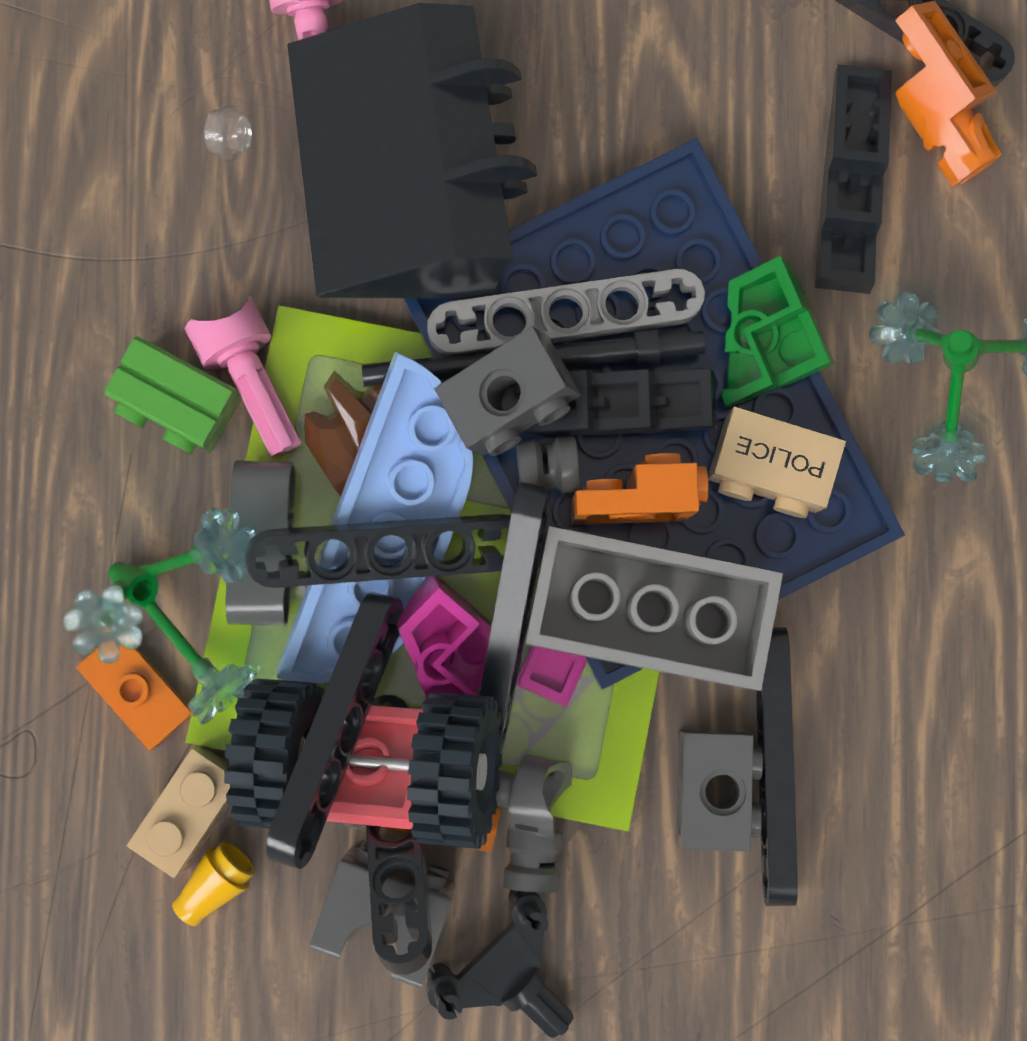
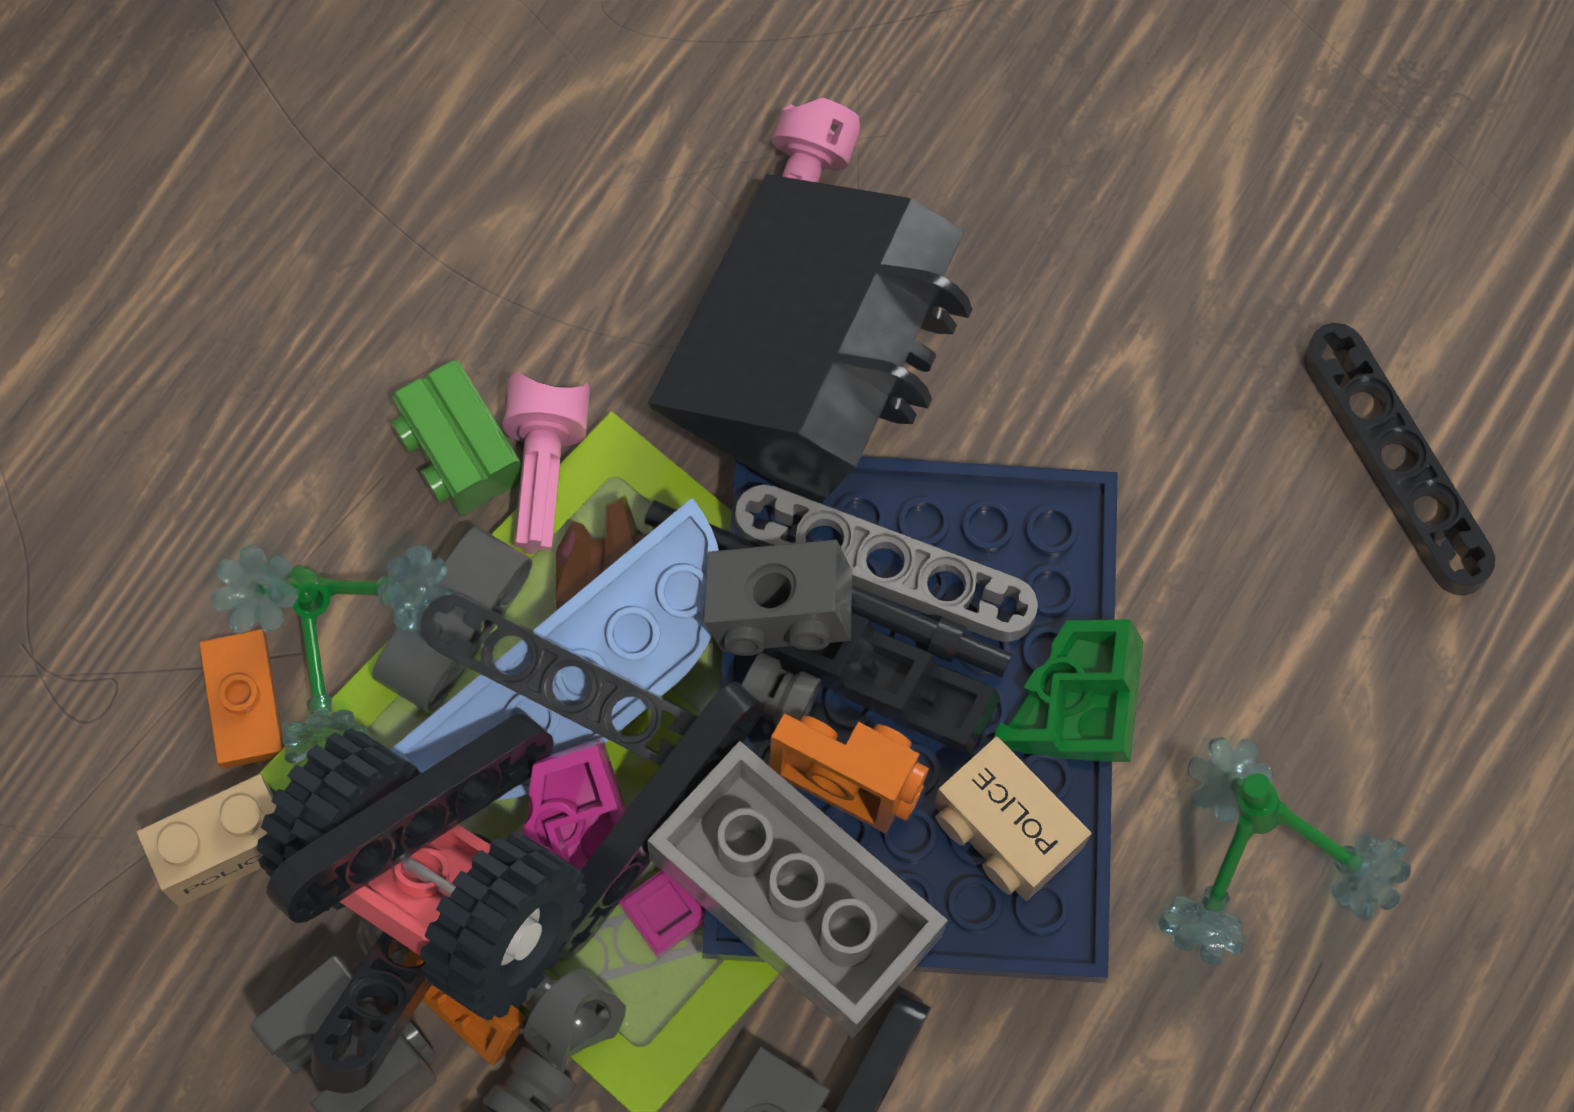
camera: 30 degrees right, 15 degrees down
(215, 881) = (197, 930): yellow cone -> none
(227, 132) = (661, 227): clear plate -> none
(854, 179) = (1258, 603): black slope -> none
(945, 93) = (1398, 568): orange plate -> none

